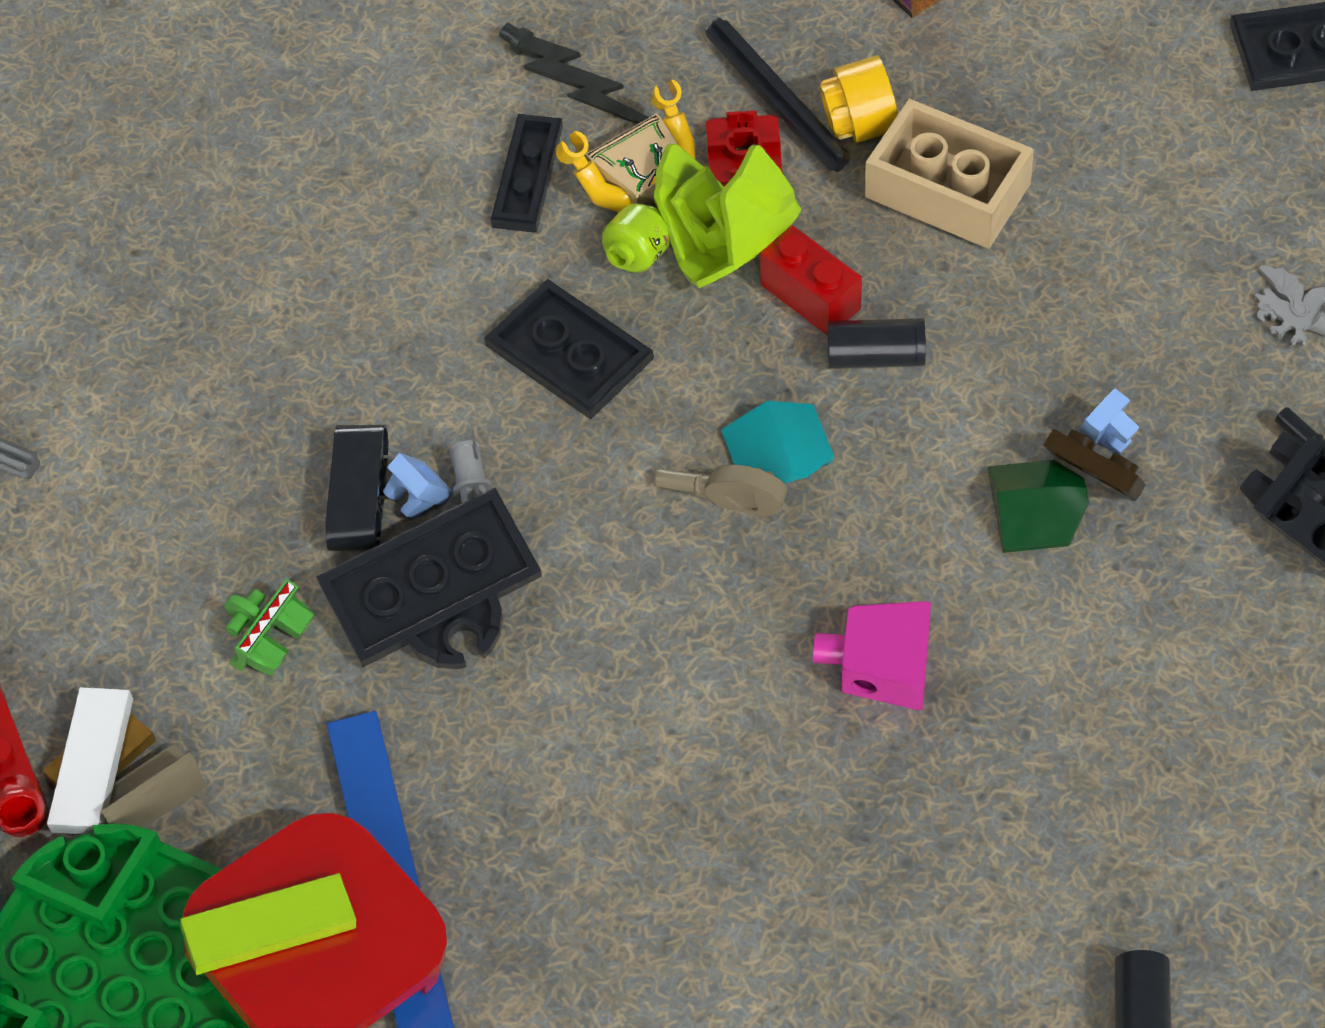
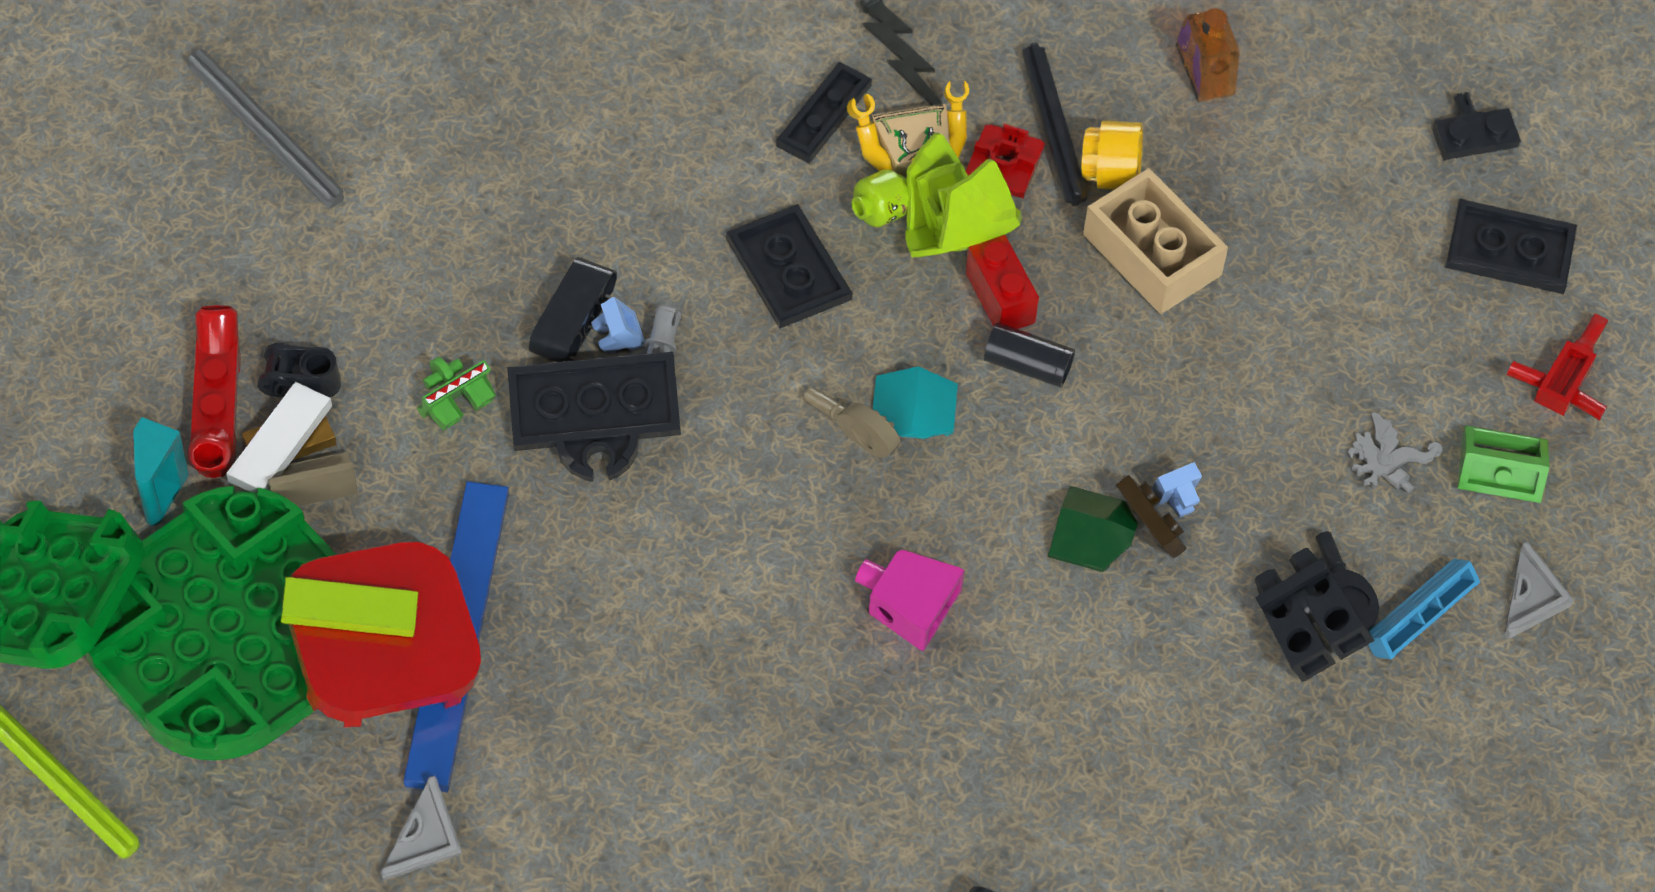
camera: 15 degrees right, 0 degrees up
(74, 668) = (300, 366): none -> black piece

